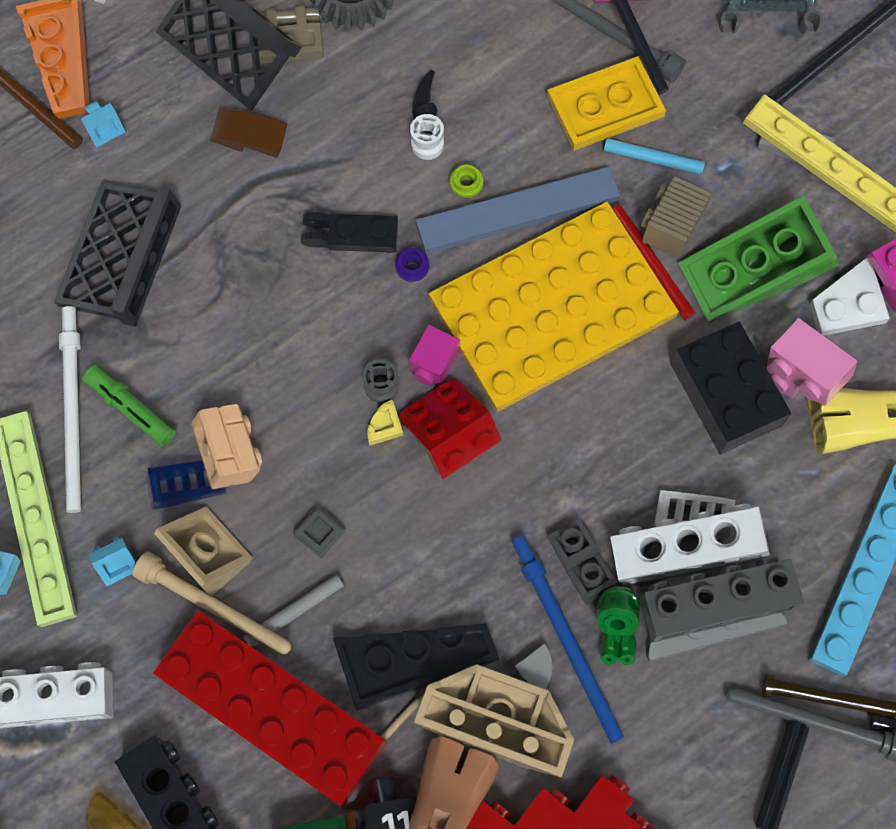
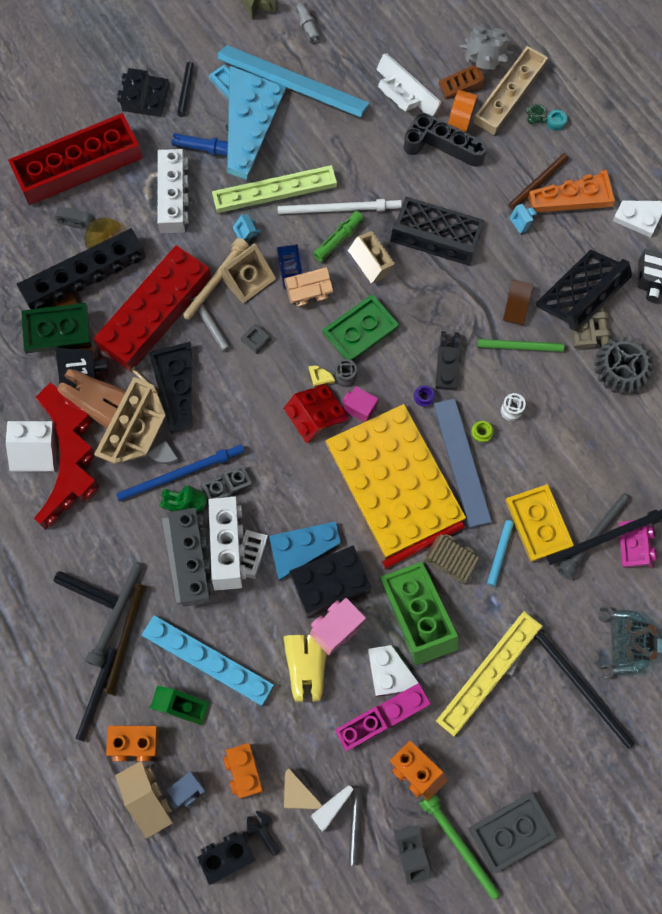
camera: 90 degrees right, 0 degrees up
(174, 346) = (371, 257): none -> tan brick
(300, 363) = (360, 328): none -> green plate
(320, 131) = (520, 345): none -> bright green bar
(421, 100) = (544, 408): black bar -> none
(673, 436) = (302, 546): none -> dark azure wing

